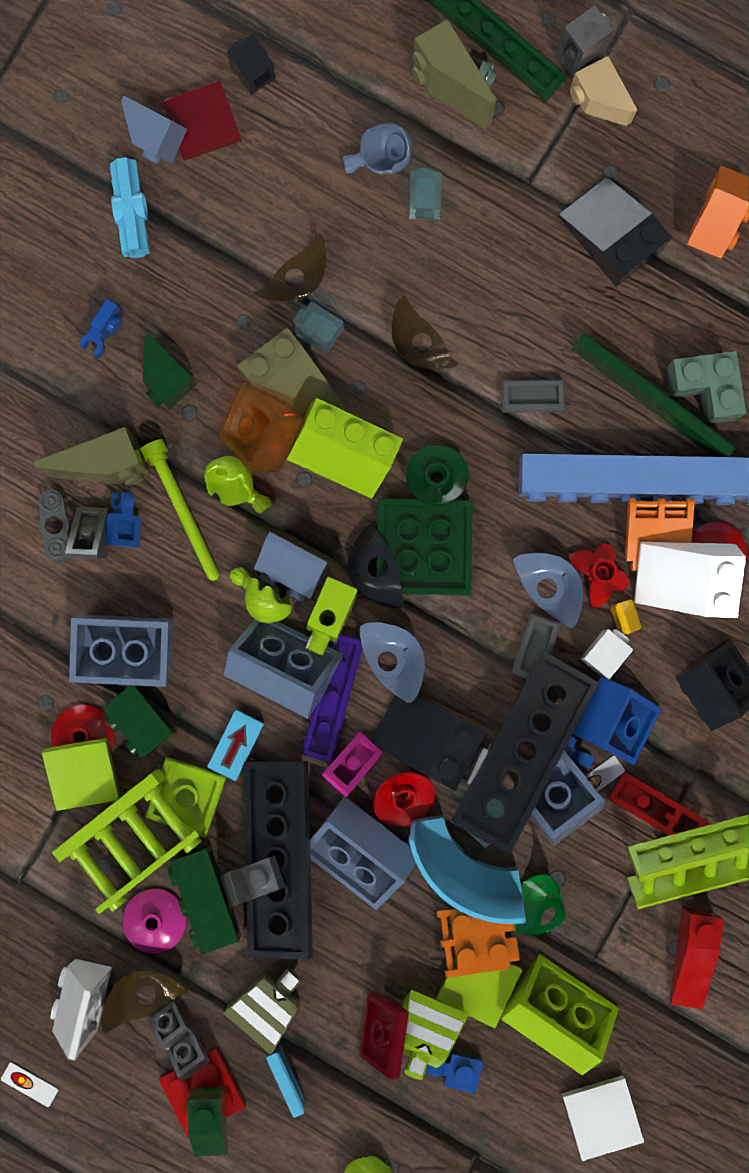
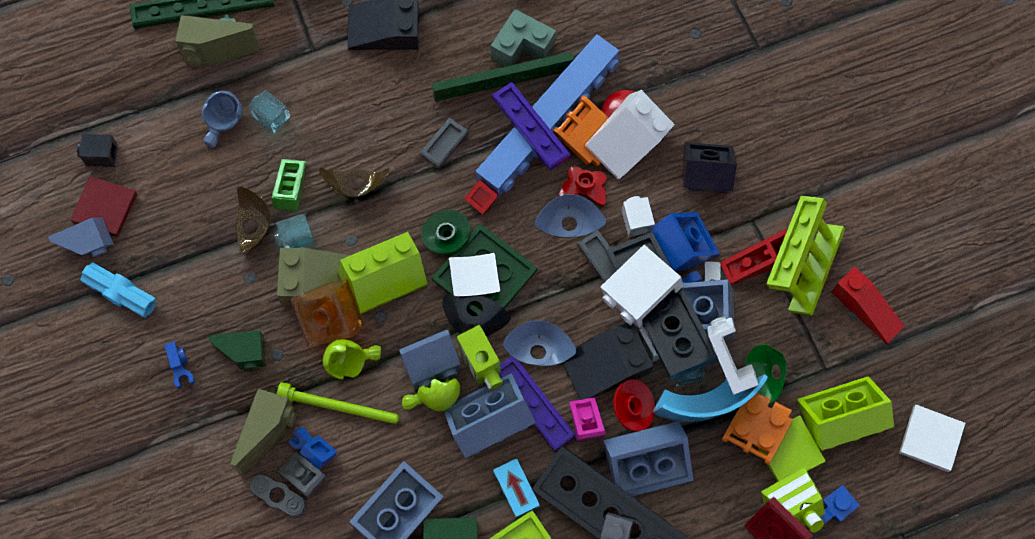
camera: 55 degrees left, 15 degrees down
(360, 294) = (288, 199): none -> bright green slope
(412, 539) = (474, 275): none -> white sticker
(503, 480) = (481, 196): none -> red plate
(507, 889) = (738, 379): none -> white panel
(525, 719) = (640, 285): none -> white panel
(616, 471) = (531, 126): none -> dark purple tile
(625, 617) = (623, 190): yellow slope -> none

